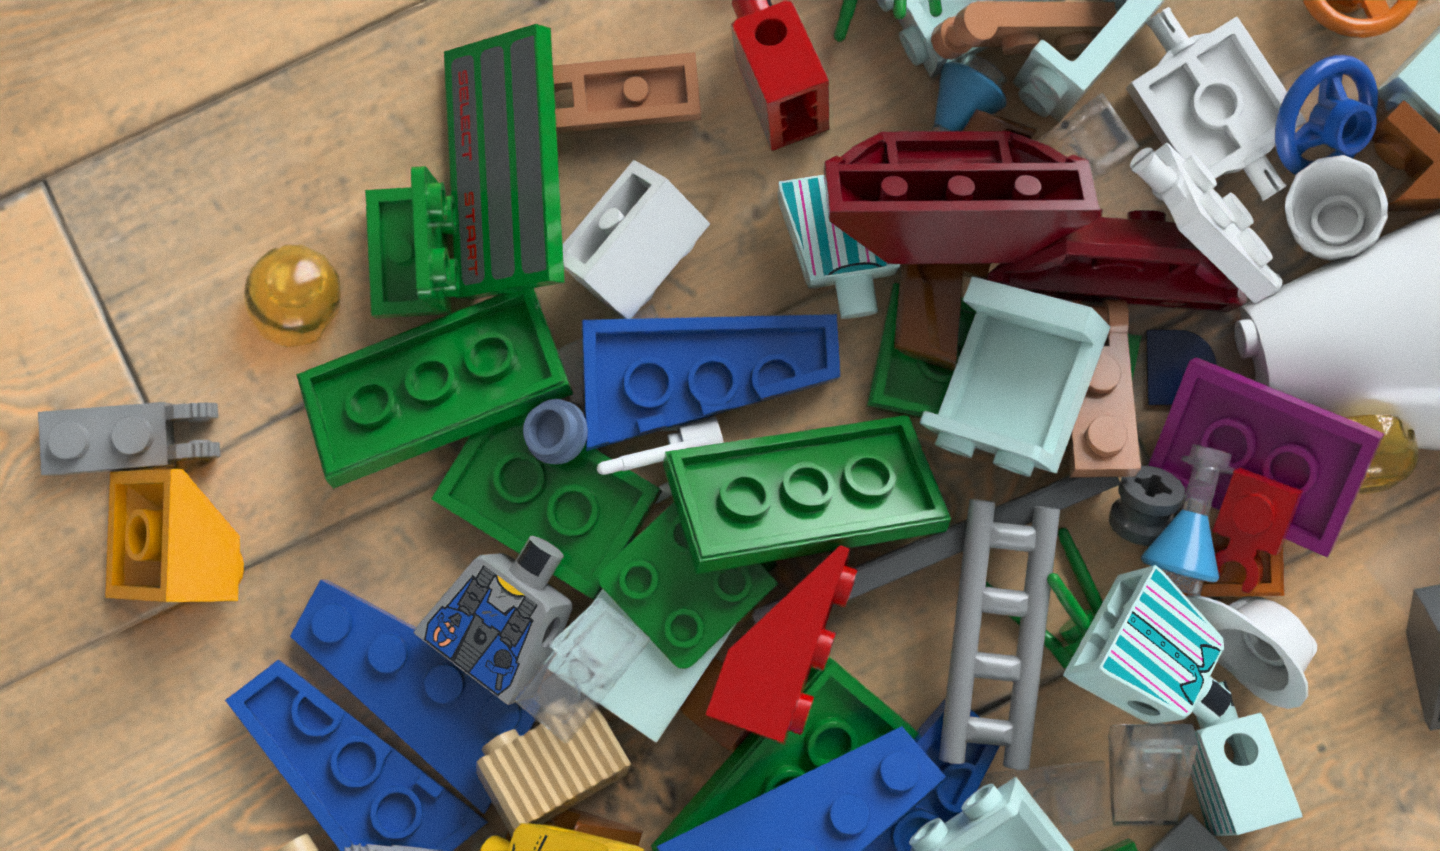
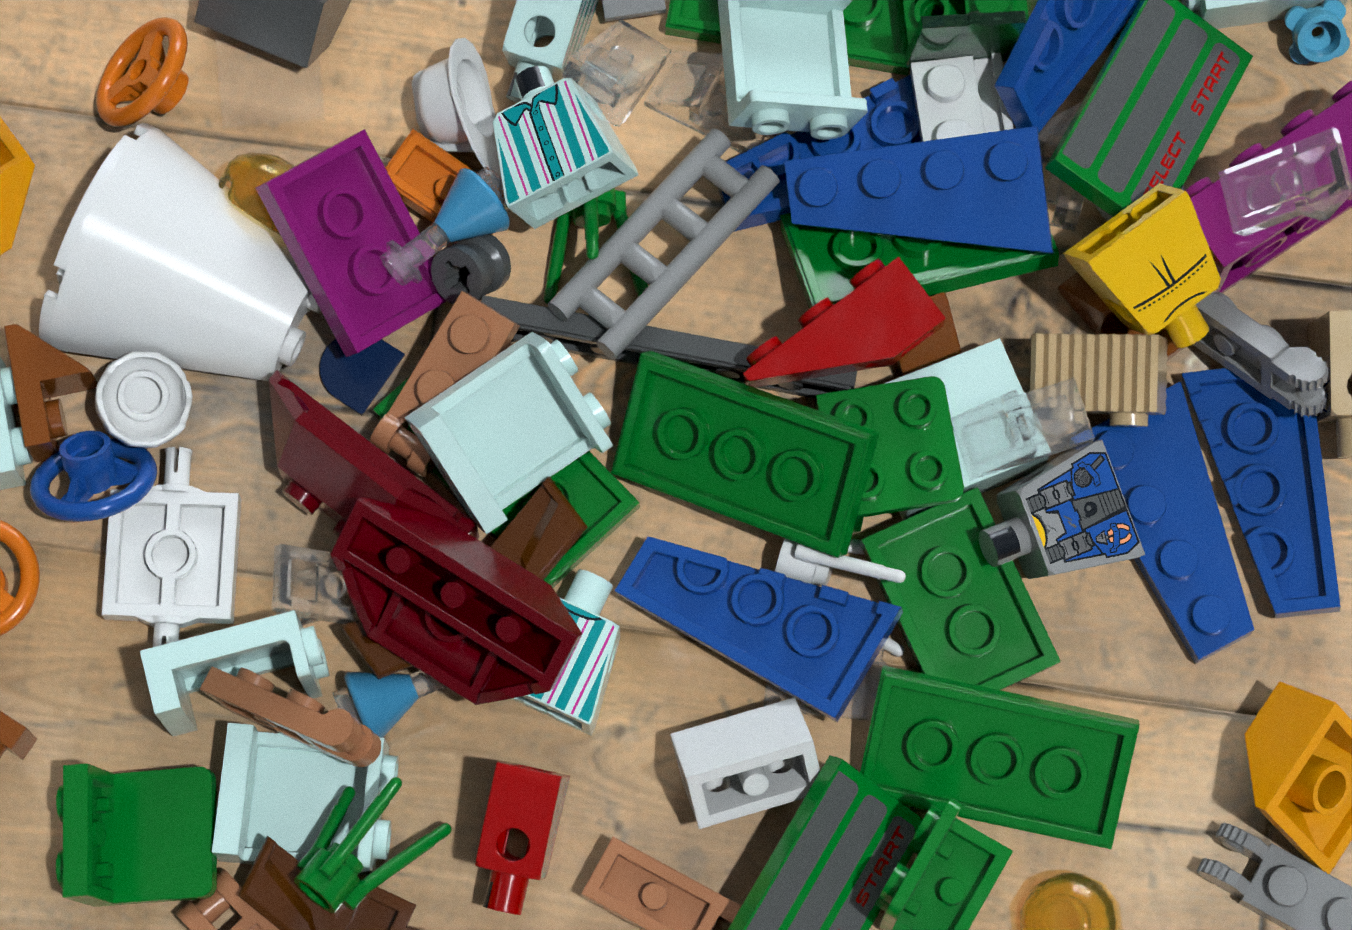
camera: 150 degrees left, 10 degrees down
(555, 431) = (918, 639): sand blue plate -> none
(1209, 221) = (261, 449): white plate -> none
(1255, 518) = (400, 193): red plate -> none

